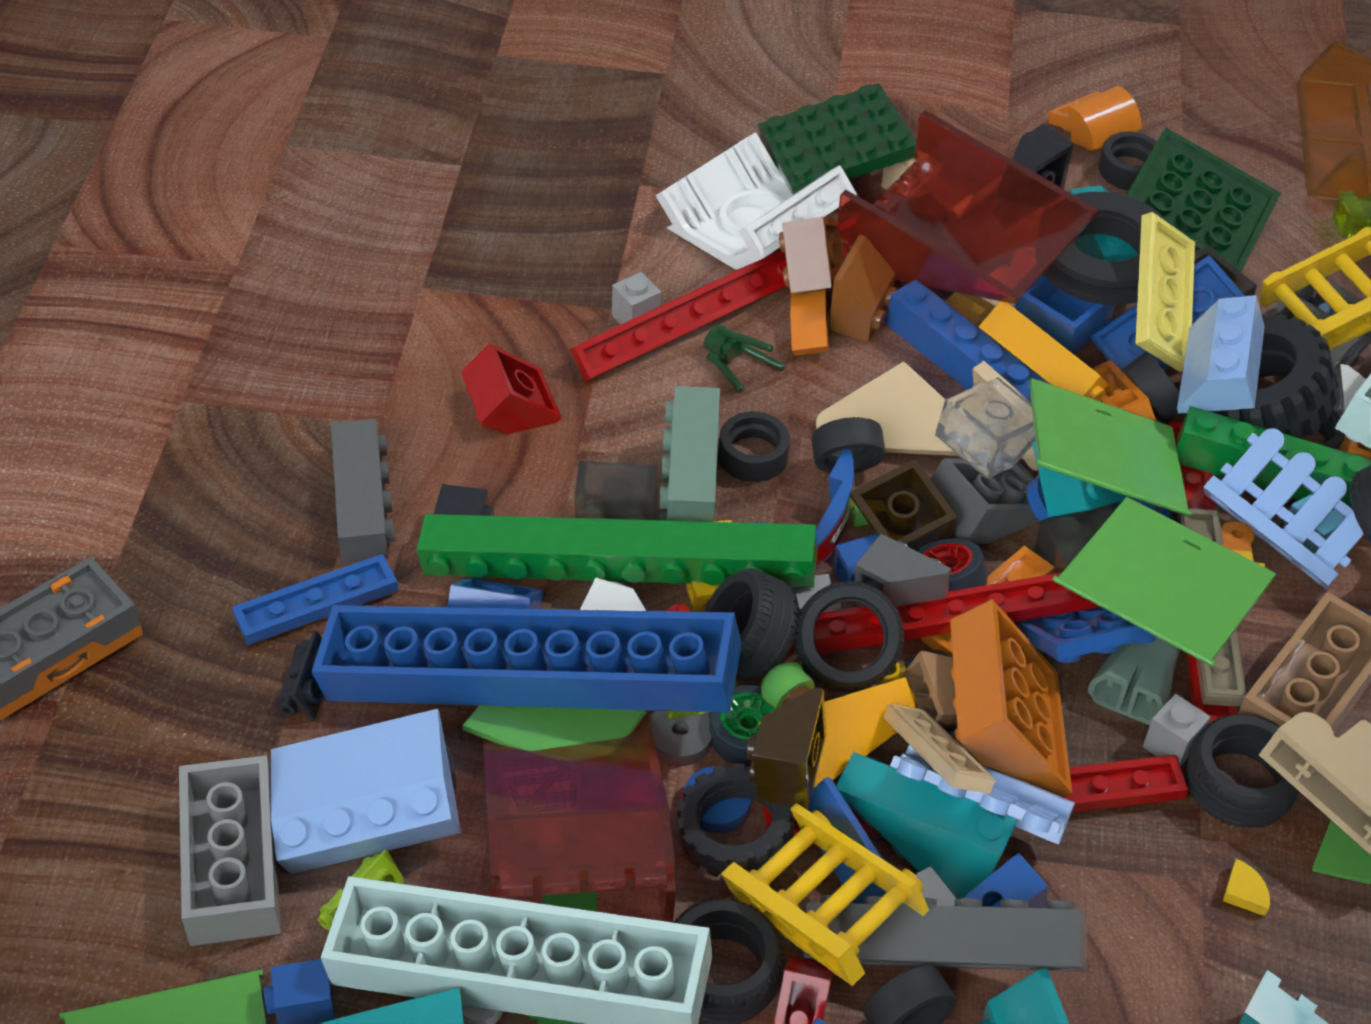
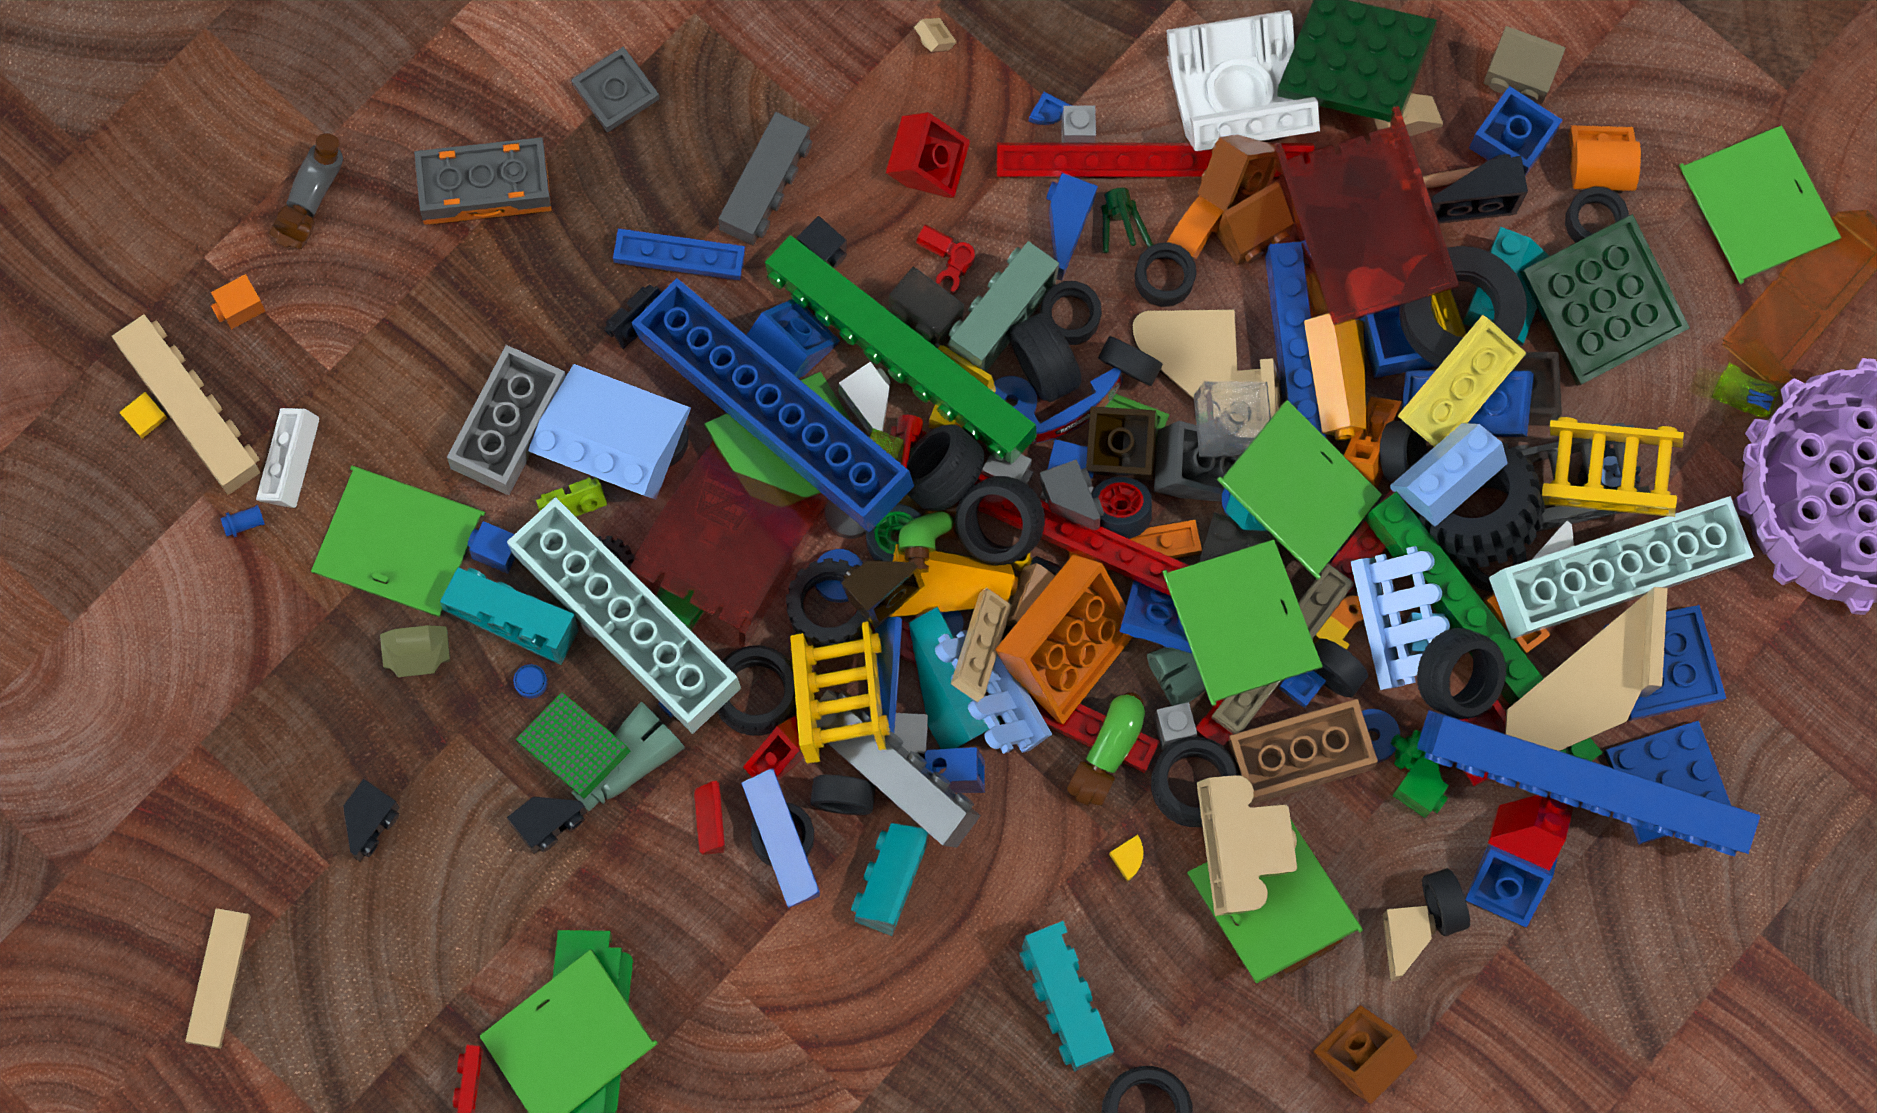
camera: 30 degrees right, 25 degrees up
(142, 494) = (615, 89): none -> dark grey plate
(440, 303) = (935, 35): none -> tan plate
(568, 456) = (960, 255): none -> red bar
(595, 311) = (1047, 110): none -> blue tile
(680, 362) = (1068, 213): none -> blue slope
(780, 461) = (1045, 357): none -> black tyre
(809, 392) = (1169, 251): none -> black tyre
(975, 84) = (1524, 64): none -> dark tan slope
(1007, 118) = (1516, 128): none -> blue brick
(1141, 788) = (1115, 740): none -> bright green piece
(1240, 95) = (1756, 205): none -> bright green piece
(1257, 630) = (1302, 687): none -> blue plate
(1286, 604) = (1339, 668): none -> black tyre

